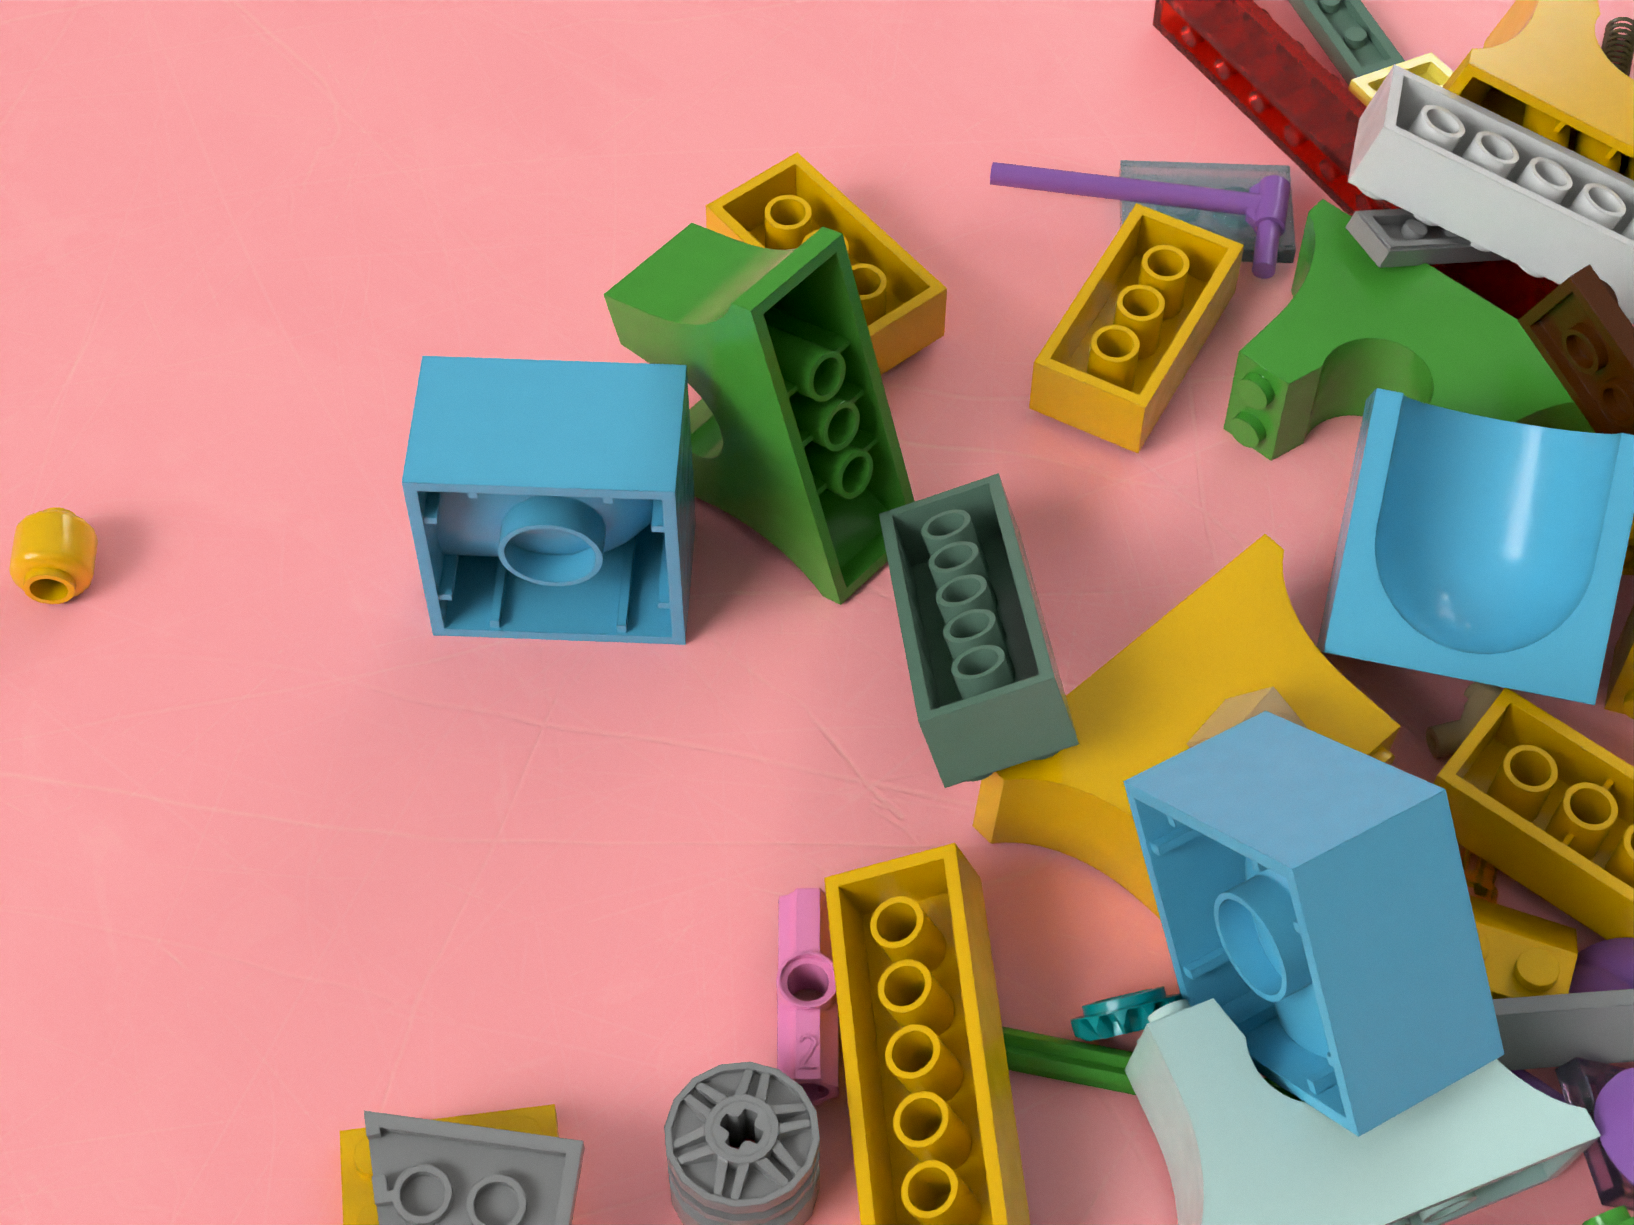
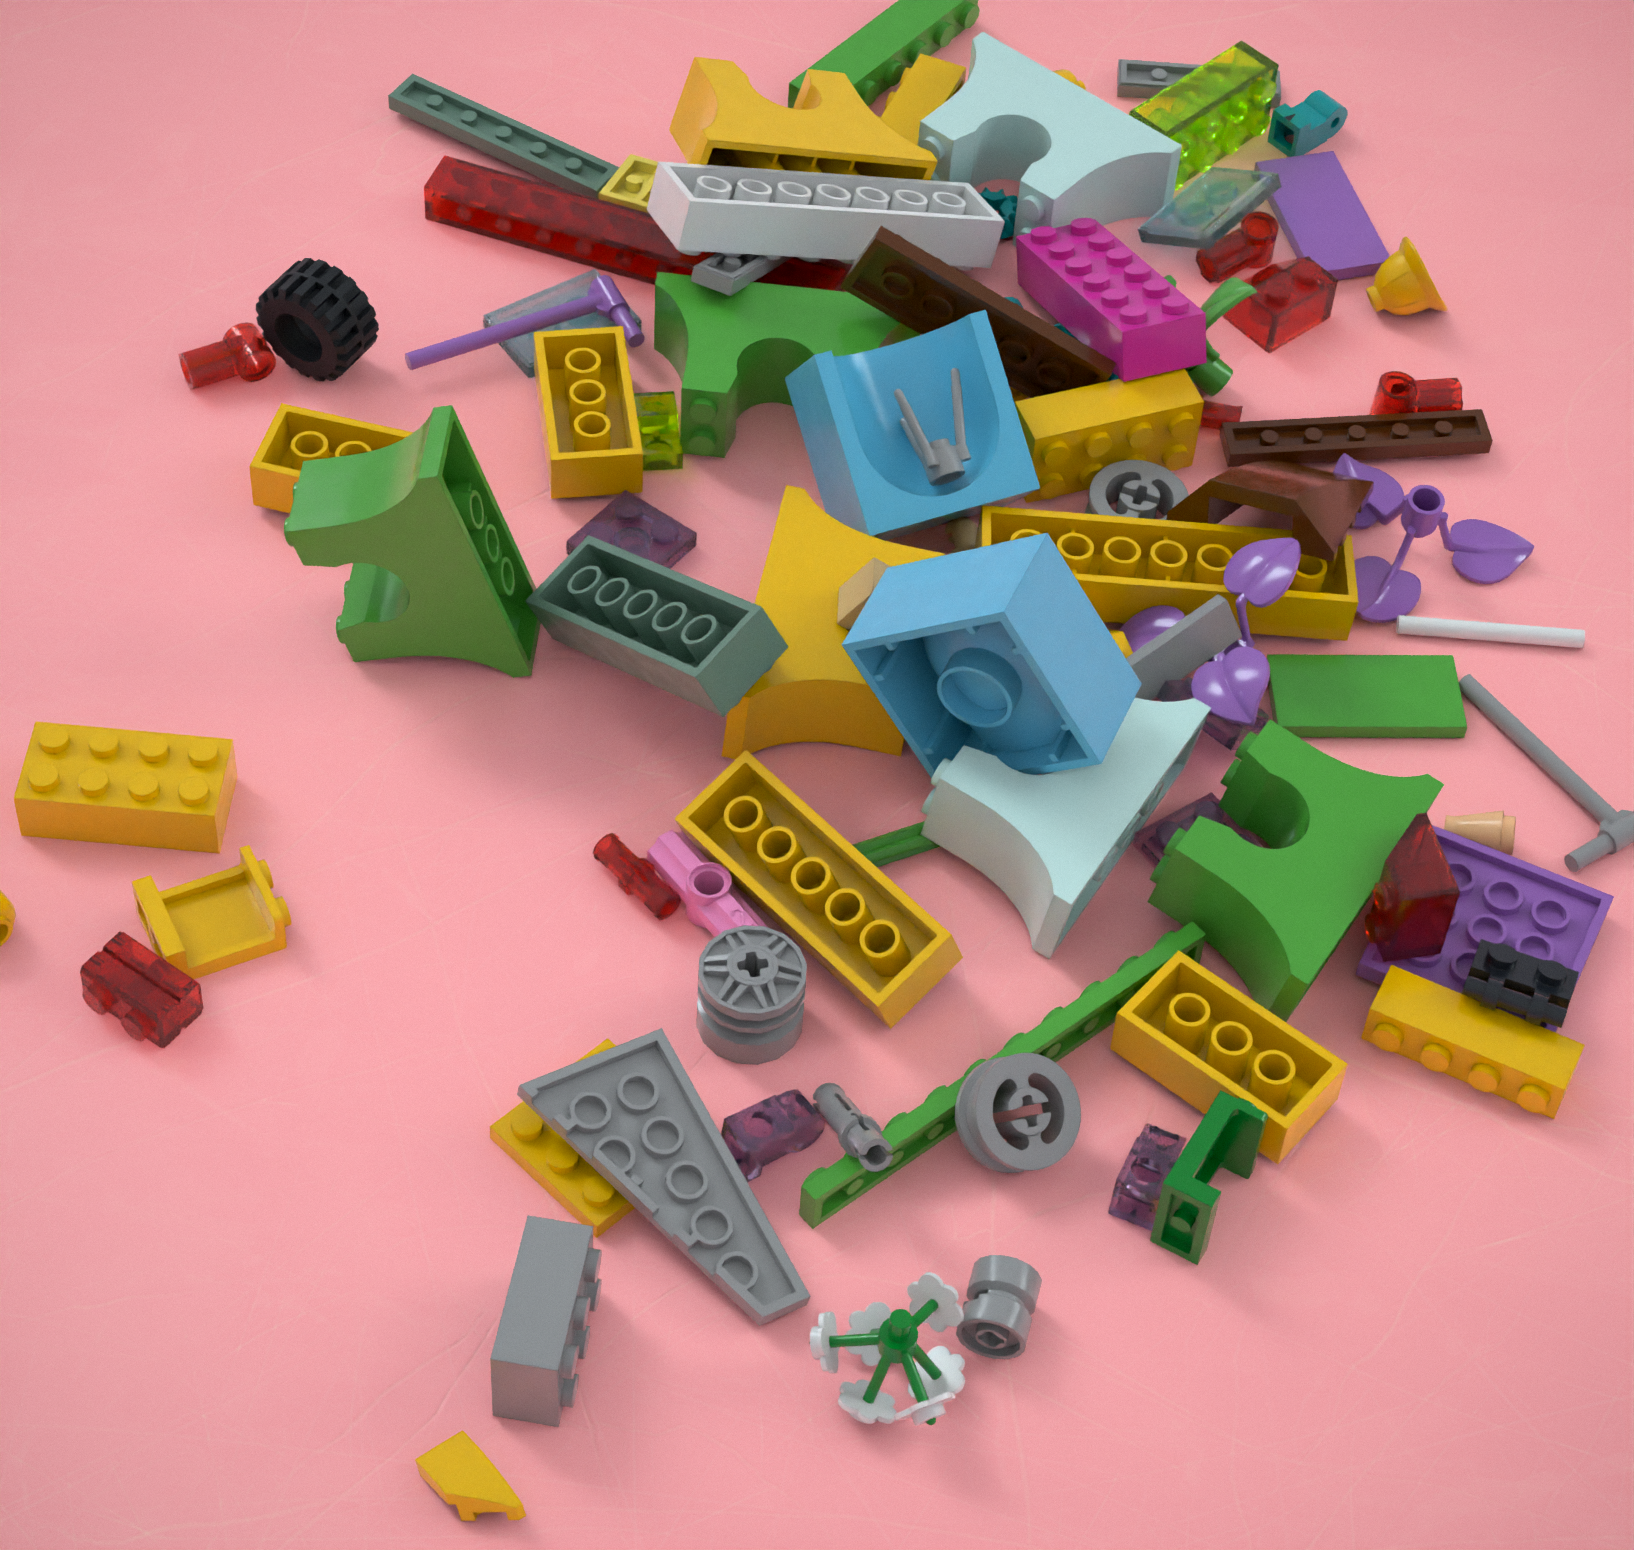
camera: 40 degrees left, 5 degrees down
(128, 737) = (140, 990): none -> clear red brick
(267, 697) = (214, 918): none -> yellow panel
(303, 497) = (126, 787): none -> yellow brick
(552, 498) = (335, 685): medium azure piece -> none
(750, 920) = (636, 876): none -> clear red pin
(824, 82) = (240, 354): none -> clear red piece
(916, 78) = (317, 319): none -> black tyre
(1078, 508) = (639, 530): none -> clear purple plate
(1120, 1014) = (901, 801): teal gear -> none
(1201, 398) = (659, 430): none -> clear neon green slope
(1484, 598) = (939, 458): none -> light grey plant

